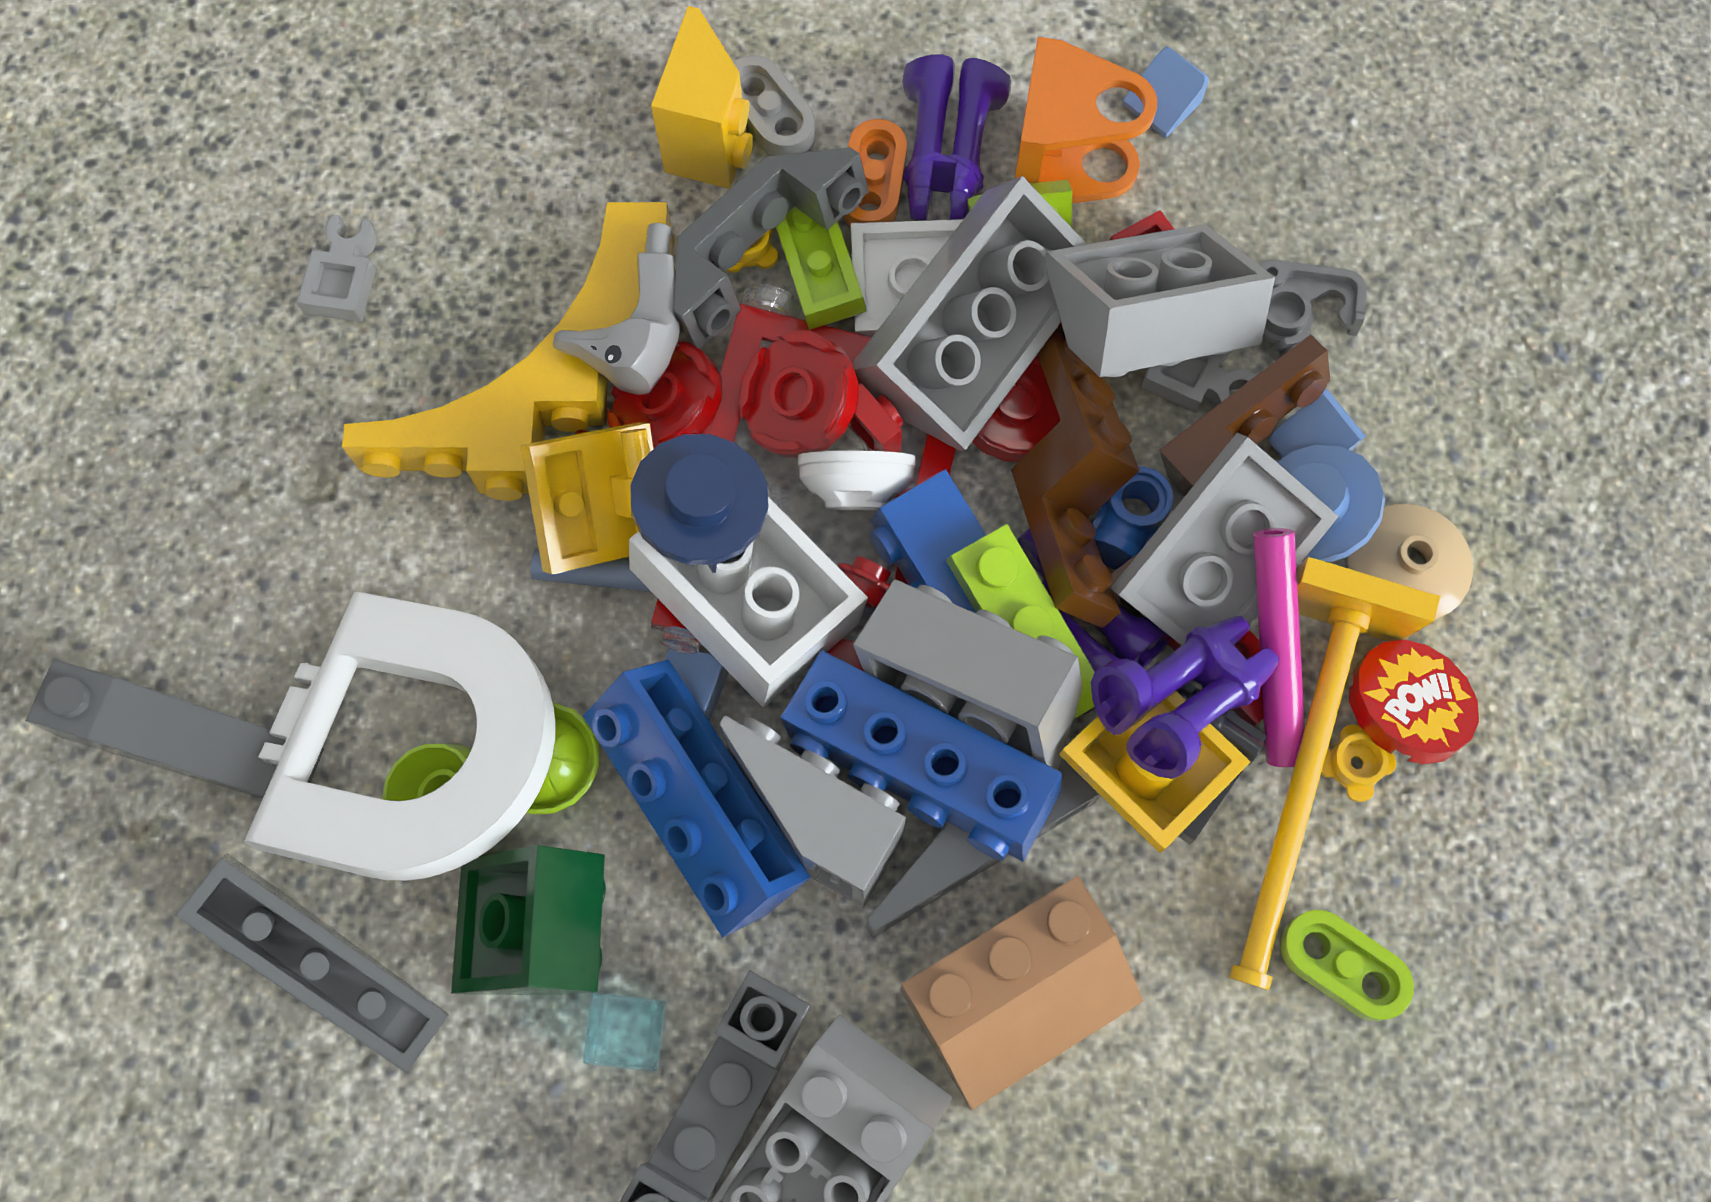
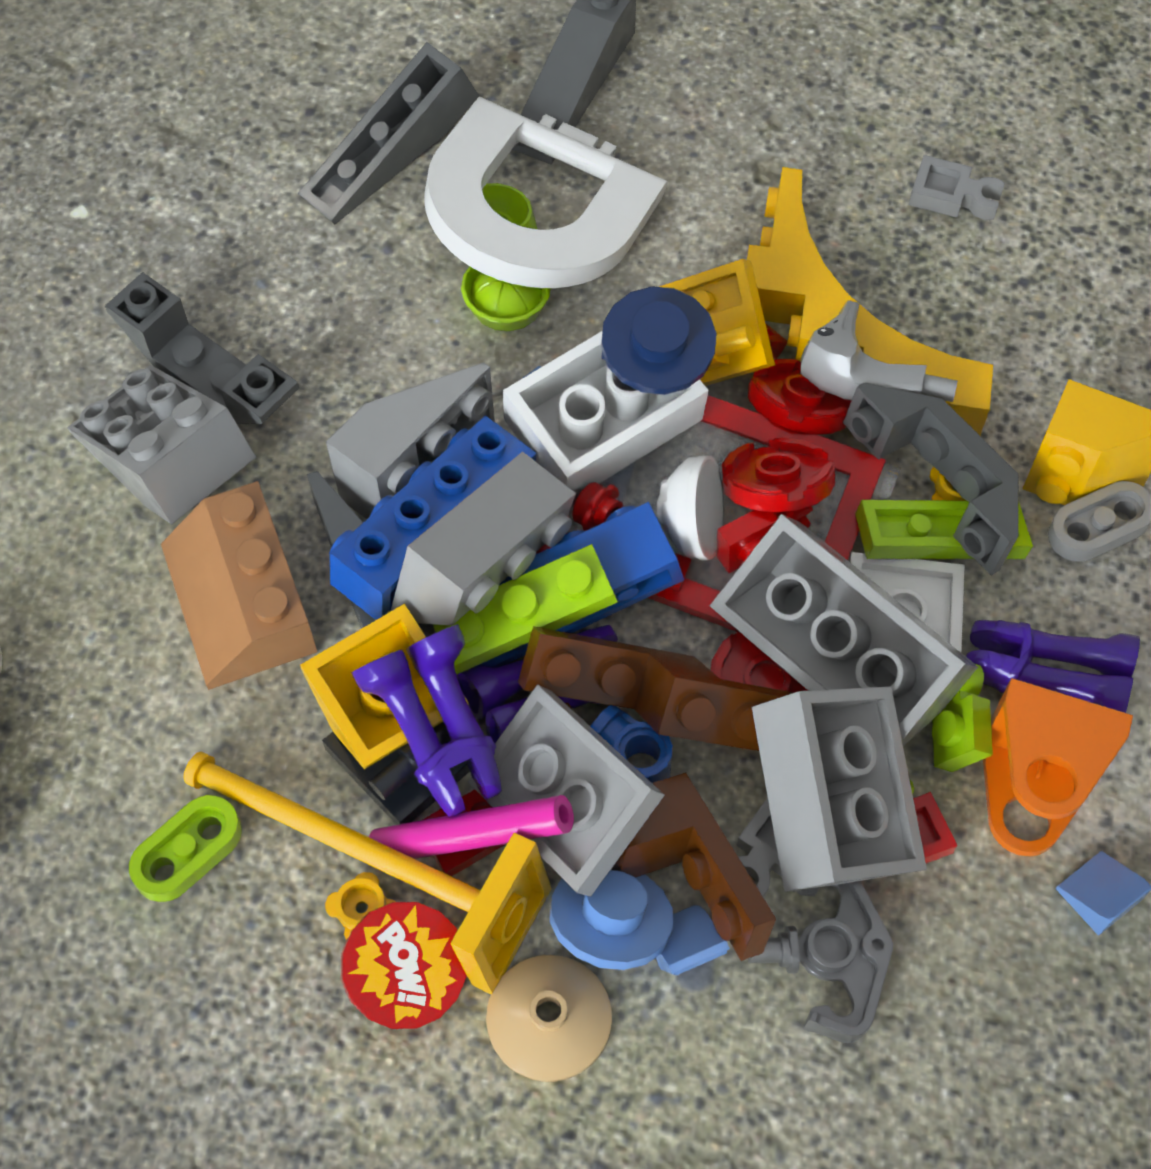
camera: 100 degrees right, 10 degrees down
(529, 923) = (377, 269): dark green slope -> none
(624, 1032) = (286, 319): clear light blue slope -> none
(695, 796) = (511, 347): blue brick -> none
(882, 176) = (1019, 595): orange plate -> none

